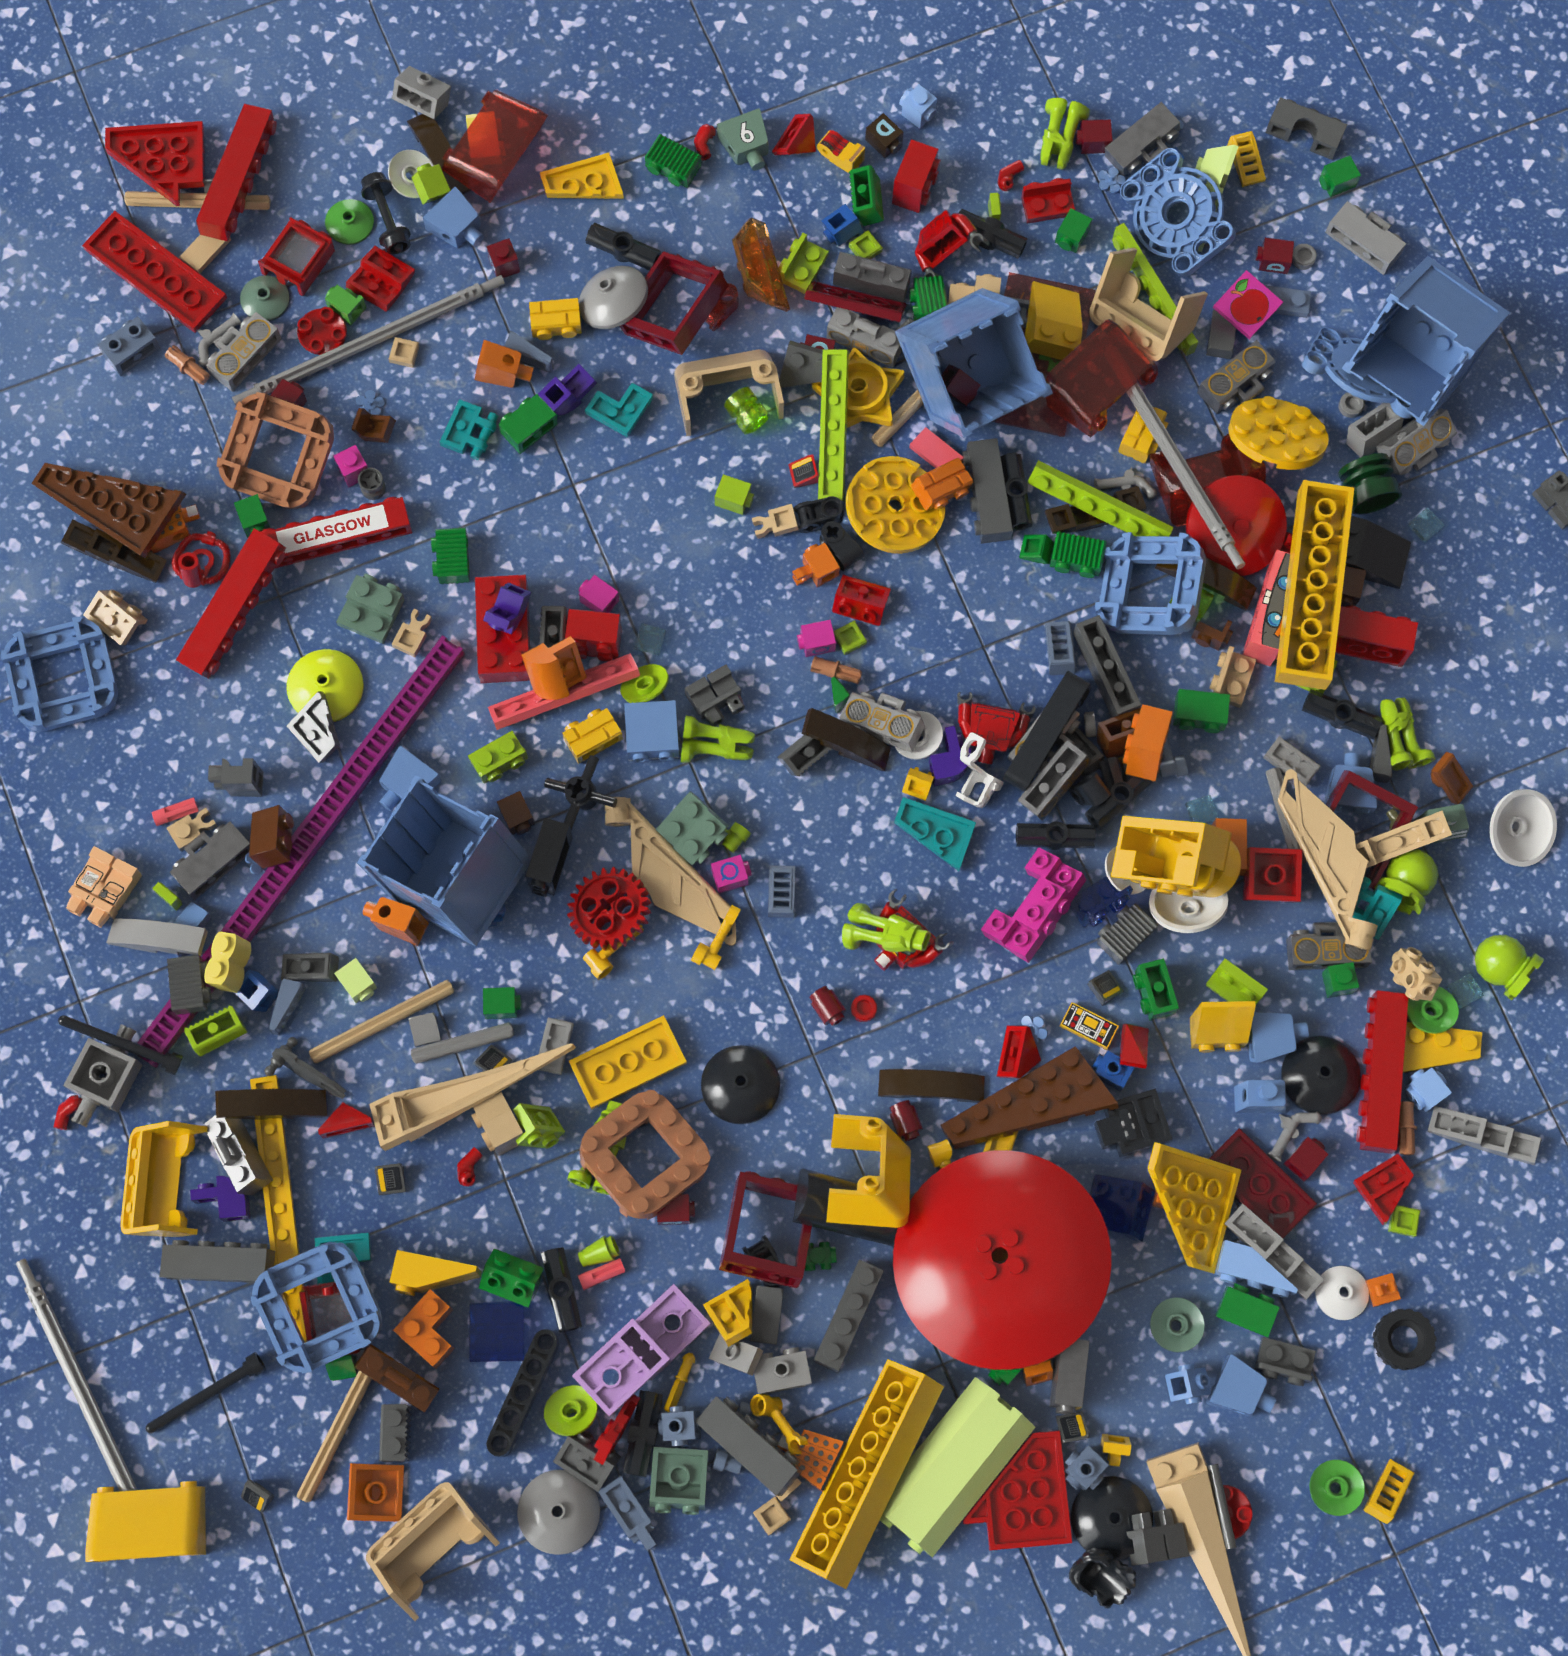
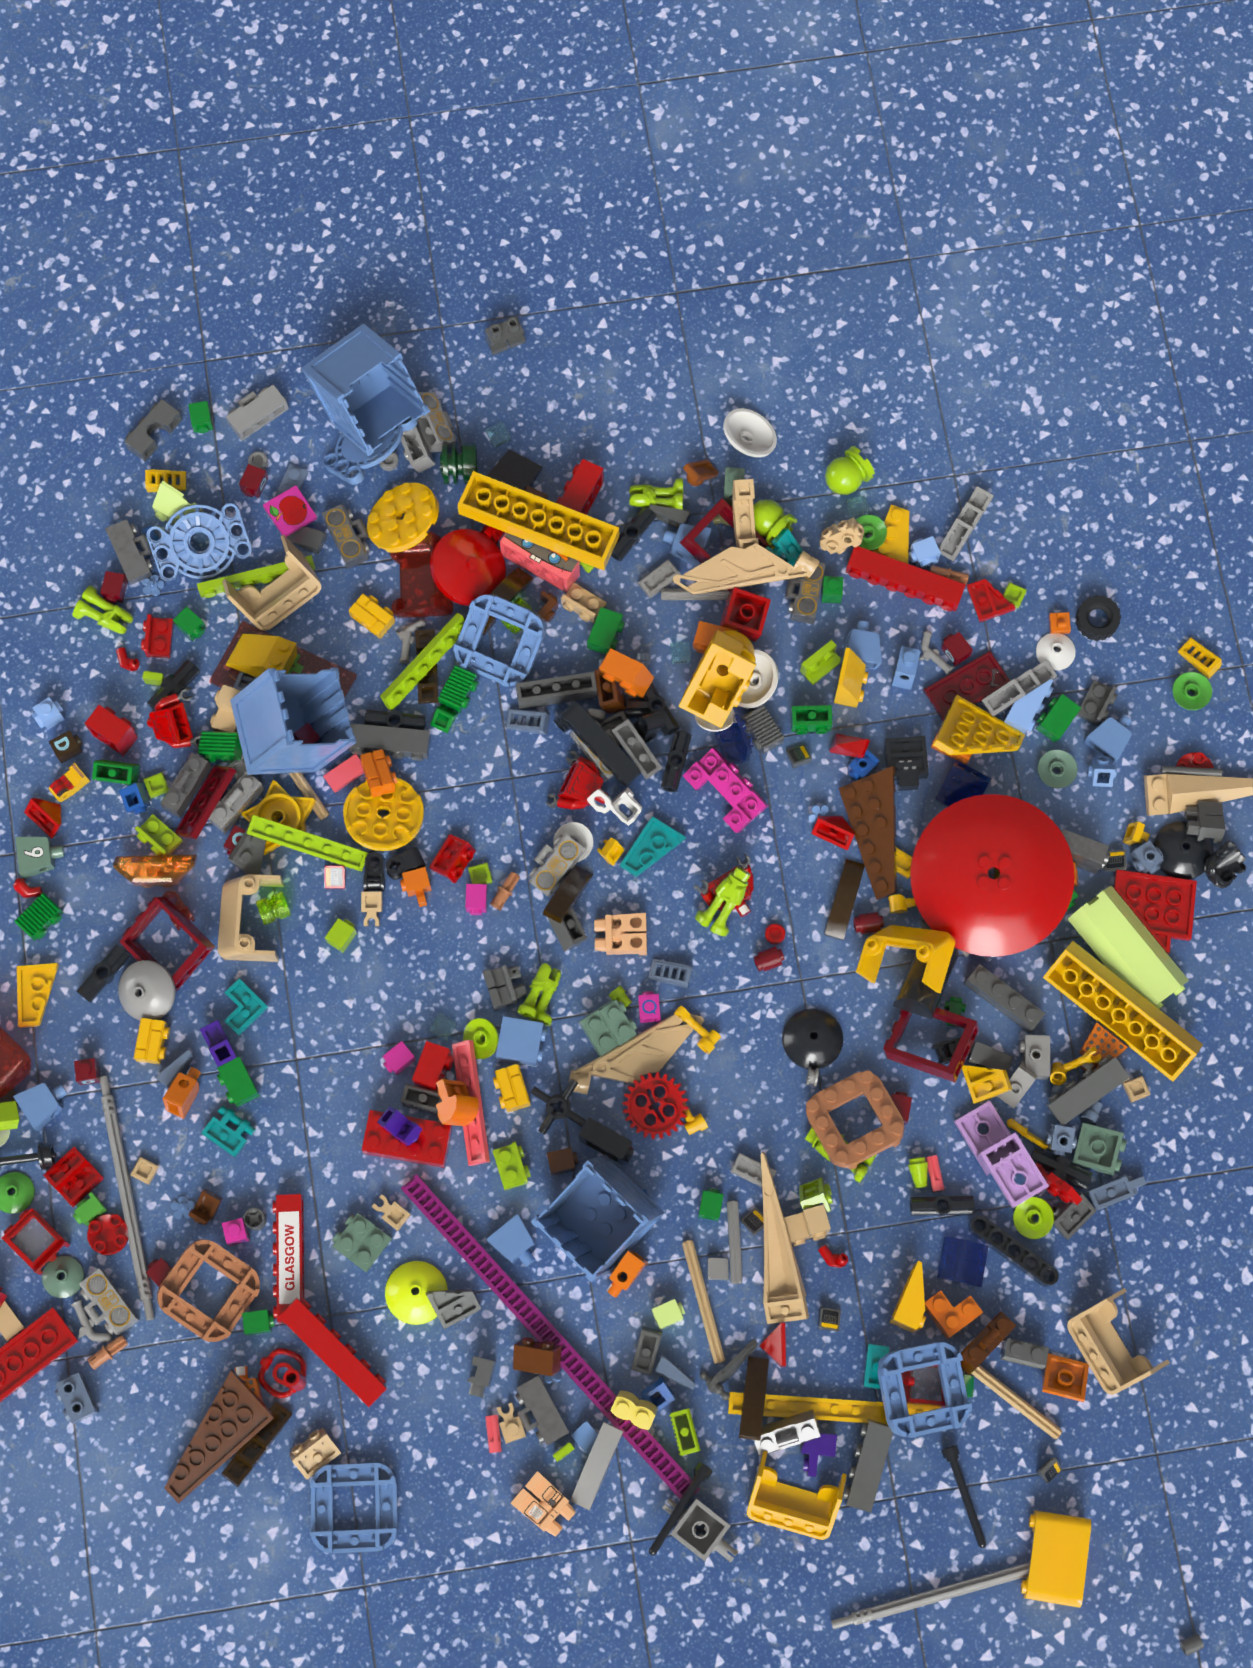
camera: 75 degrees left, 0 degrees up
(64, 1111) = (718, 1567): red arm -> none
(187, 984) = (644, 1445): dark grey brick -> none
(451, 555) = (334, 1167): green brick -> none
(510, 1275) = (926, 1240): green brick -> none
(561, 1533) = (1094, 1255): light grey dish -> none
(627, 1062) = (778, 1118): yellow plate -> none
(690, 1093) = (812, 1076): none -> light grey bush
(814, 812) = (623, 934): none -> light nougat hips
(840, 694) = (526, 892): green slope -> none
(947, 766) = (602, 823): dark purple brick -> none
(1089, 1026) = (825, 775): tile -> none
(1097, 376) = (323, 633): clear red windscreen -> none
(1185, 474) = (396, 598): light grey axle -> none
(1311, 1089) = (897, 633): black dish -> none

